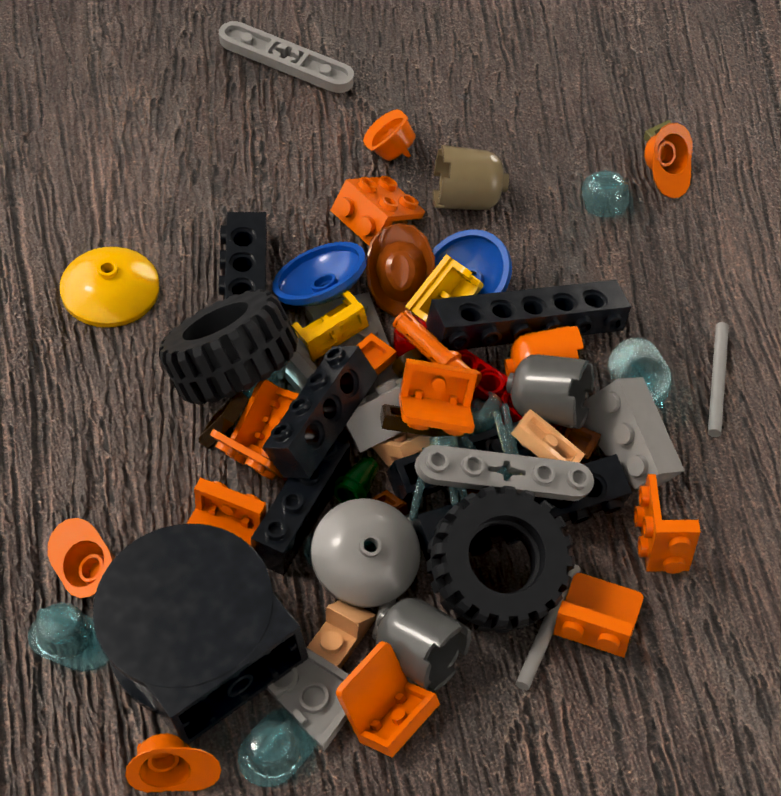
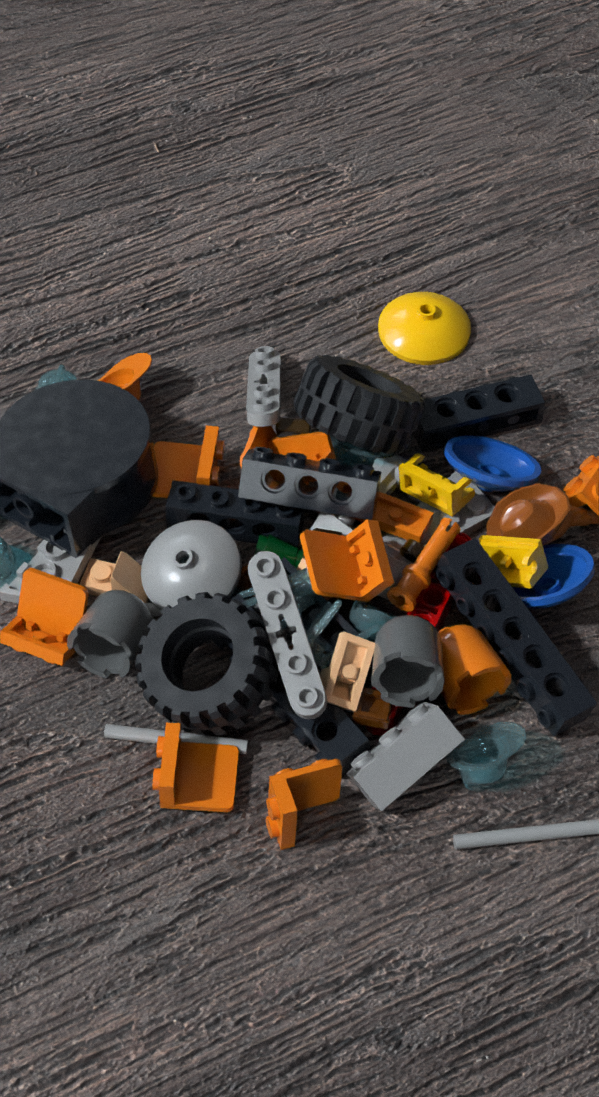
camera: 75 degrees right, 0 degrees up
(181, 426) = (264, 387): none -> light grey piece

